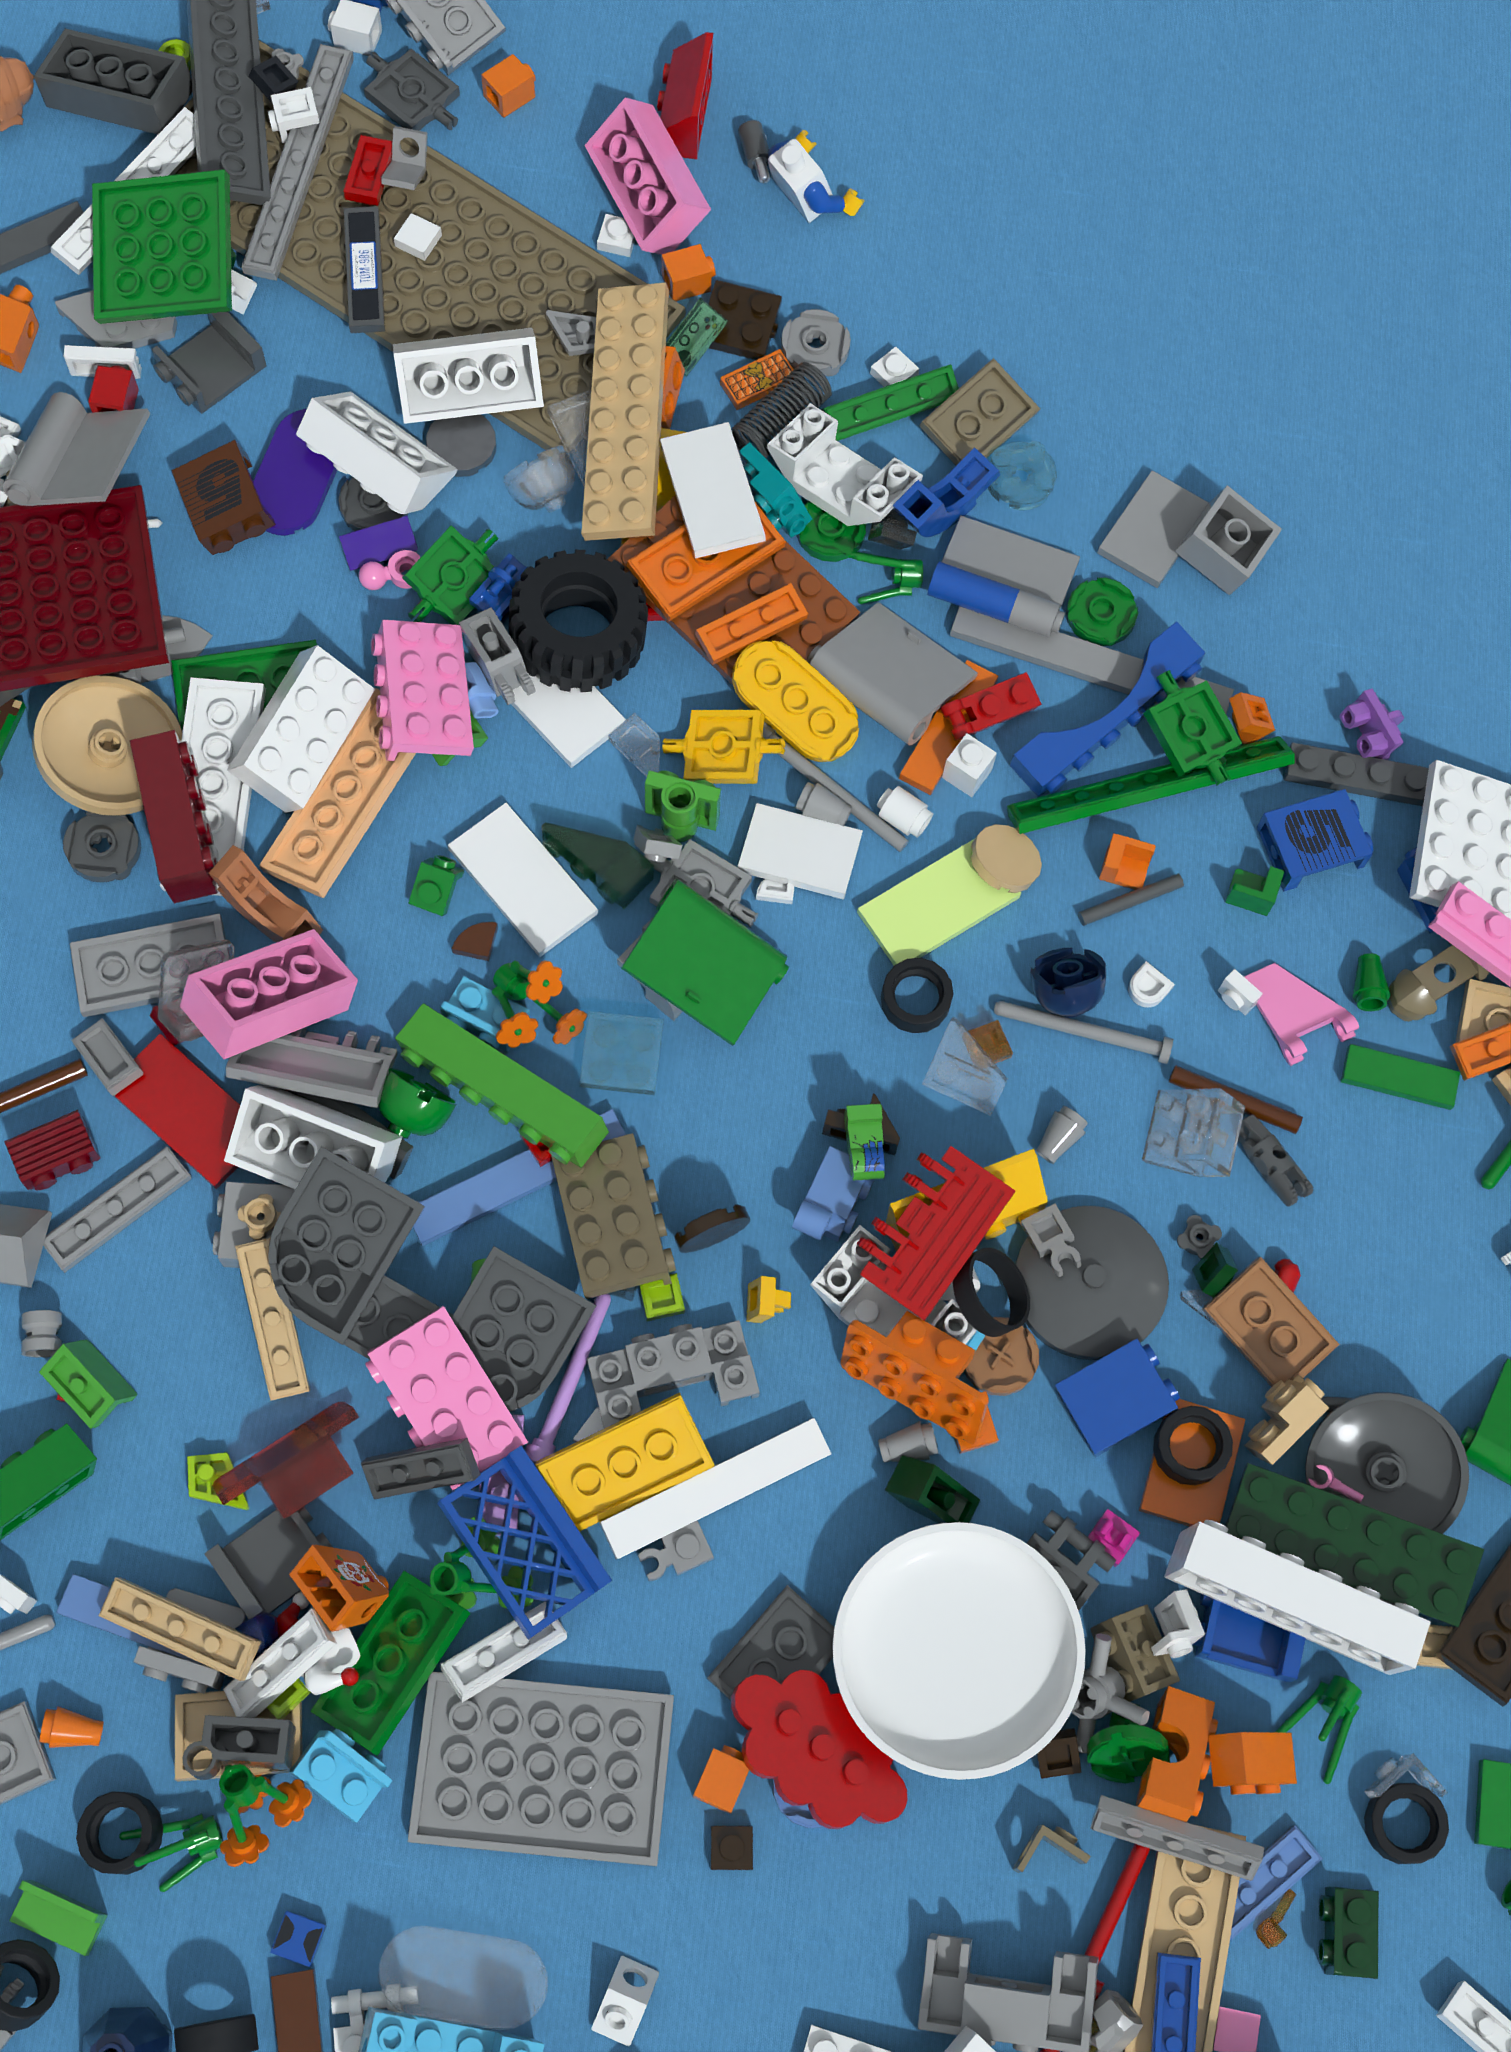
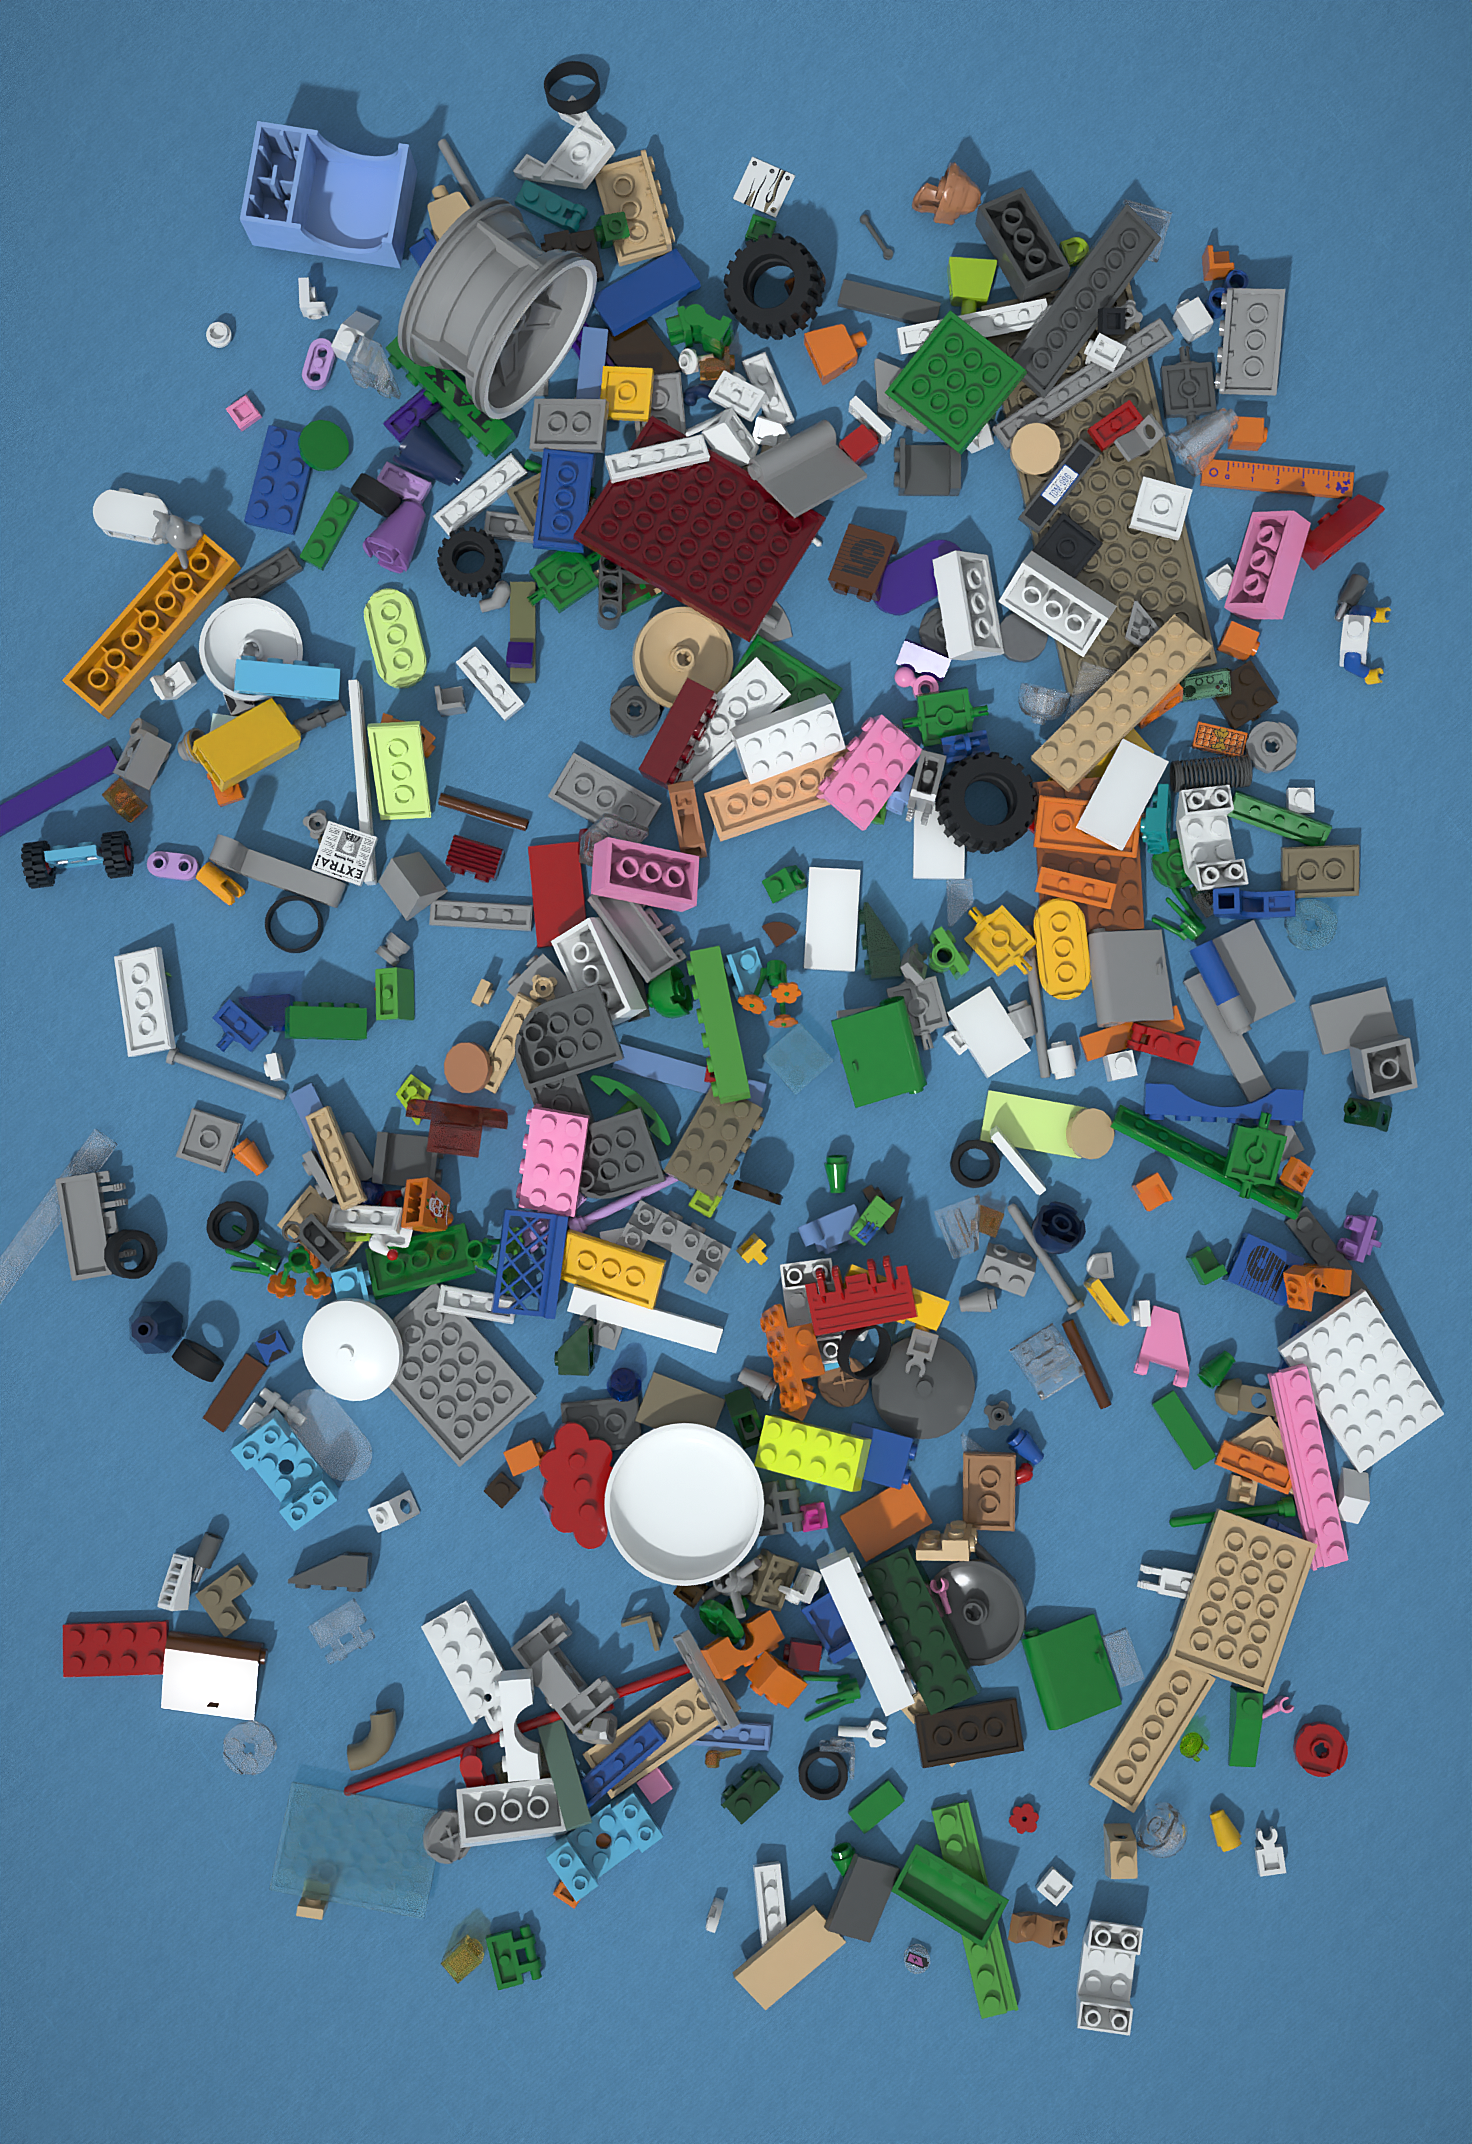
camera: 50 degrees right, 15 degrees up
(58, 1917) = (175, 1238): bright green panel -> none
(87, 156) = (970, 282): none -> lime torso
(107, 1057) = (542, 831): light grey tile -> none
(195, 1290) = (483, 993): none -> tan plate
(250, 1388) = (467, 1067): none -> nougat tile
(305, 252) = (1034, 449): none -> tan tile
(400, 1843) = (352, 1349): none -> white dish
(417, 237) = (1106, 490): white tile -> none
(420, 1468) = (512, 1183): dark grey tile -> none
(426, 313) = (1068, 546): none -> black tile
(435, 1263) = (610, 1086): none -> green slope
(470, 119) = (1202, 439): none -> clear cone
(488, 209) = (1160, 508): none -> white plate
(577, 105) = (1278, 479): none -> orange tile
(672, 1596) = (577, 1352): none -> dark green slope
(760, 1585) = (627, 1389): none -> clear blue cone
(778, 1135) = (836, 1170): none -> green cone
(835, 1550) = (675, 1402): none -> dark tan tile
(958, 949) = (1017, 1160): none -> white tile
(1044, 1457) = (813, 1453): none -> neon yellow brick
(1057, 1075) = (1007, 1269): none -> light grey bracket
(1102, 611) = (1277, 1042): green tile -> none
(1130, 899) = (1136, 1212): dark grey bar -> none
(1192, 1009) = (1106, 1301): none -> yellow tile
(1214, 1424) = (898, 1531): black tyre -> none
(1215, 1270) = (988, 1439): dark green plate -> none
(1252, 1704) = (803, 1654): none -> dark red brick
(1253, 1242) = (1024, 1445): none -> blue cone
(1257, 602) = (1367, 1113): none -> dark green bracket
(1273, 1162) = (1073, 1412): dark grey hinge -> none
(1369, 805) = (1305, 1279): none -> orange tile
(1403, 1731) = (865, 1732): none -> white bar

